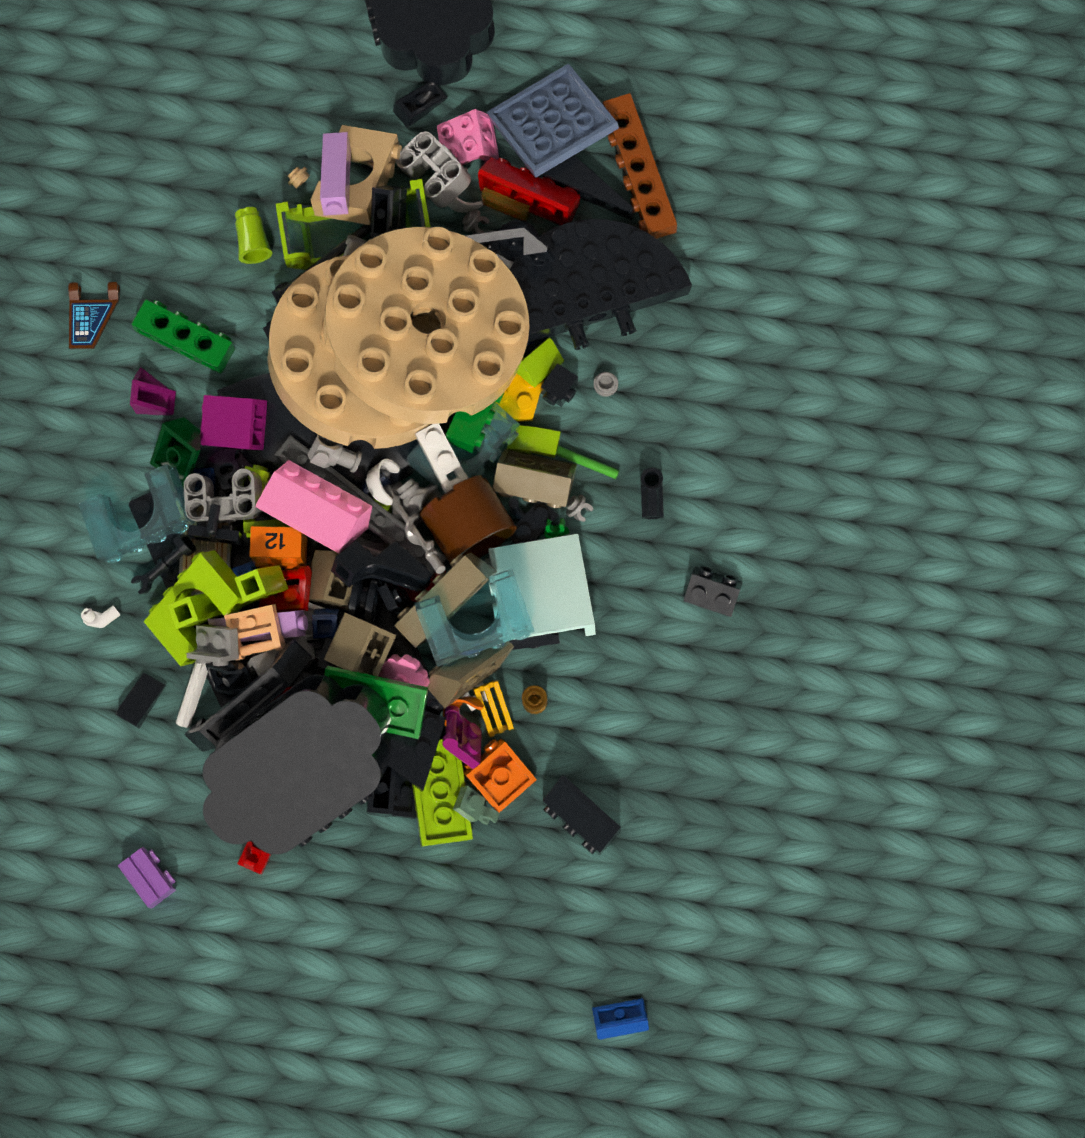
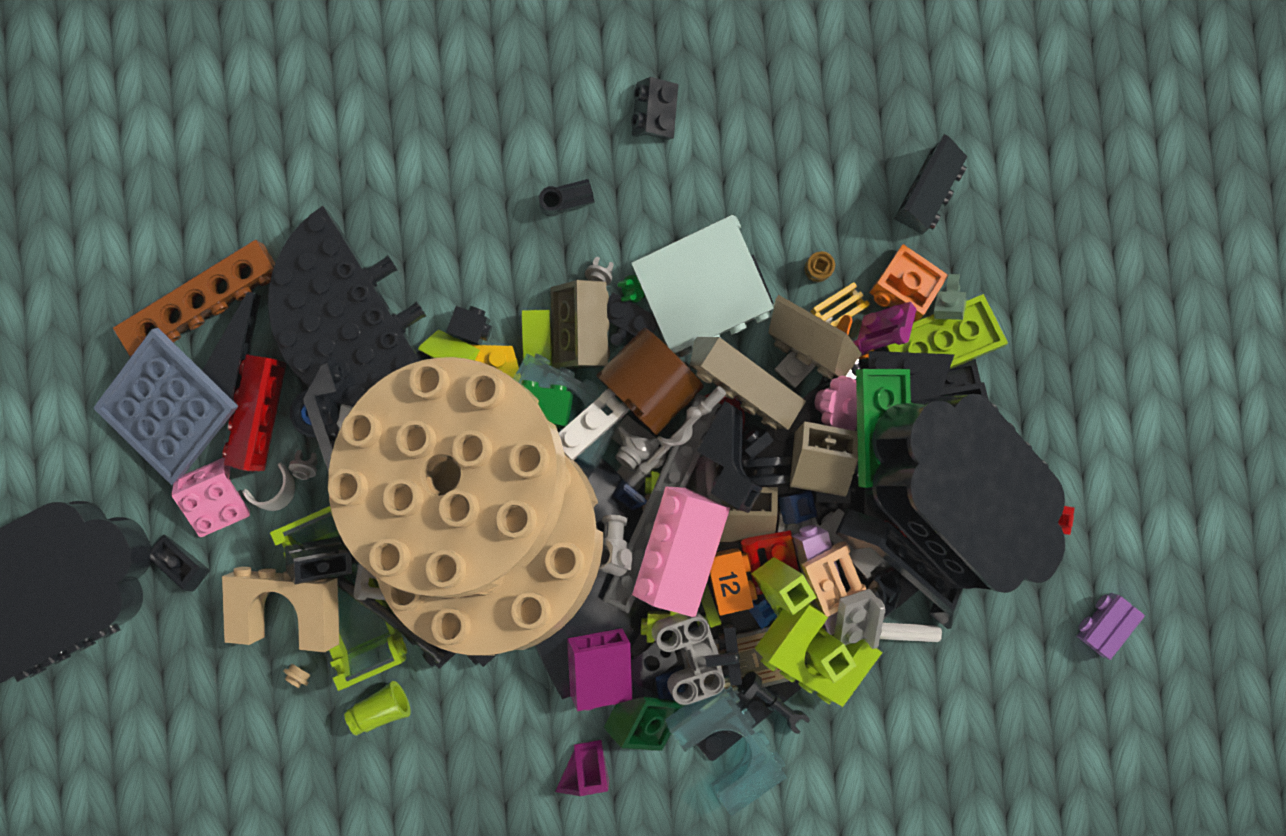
camera: 105 degrees left, 10 degrees up
(98, 619) = (847, 756): white arm -> none
(140, 700) = (924, 686): black slope -> none
(213, 358) = (506, 798): green brick -> none
(335, 174) = (287, 631): lavender brick -> none
(374, 484) = (632, 494): white helmet -> none
(450, 175) = (242, 517): light grey beam -> none
(451, 644) = (796, 357): clear light blue arch -> none
(505, 204) = (276, 436): clear yellow tile -> none
(587, 462) = (546, 275): bright green bar -> none
(605, 384) = (454, 277): light grey plate -> none
(620, 1019) = (1121, 100): blue slope -> none

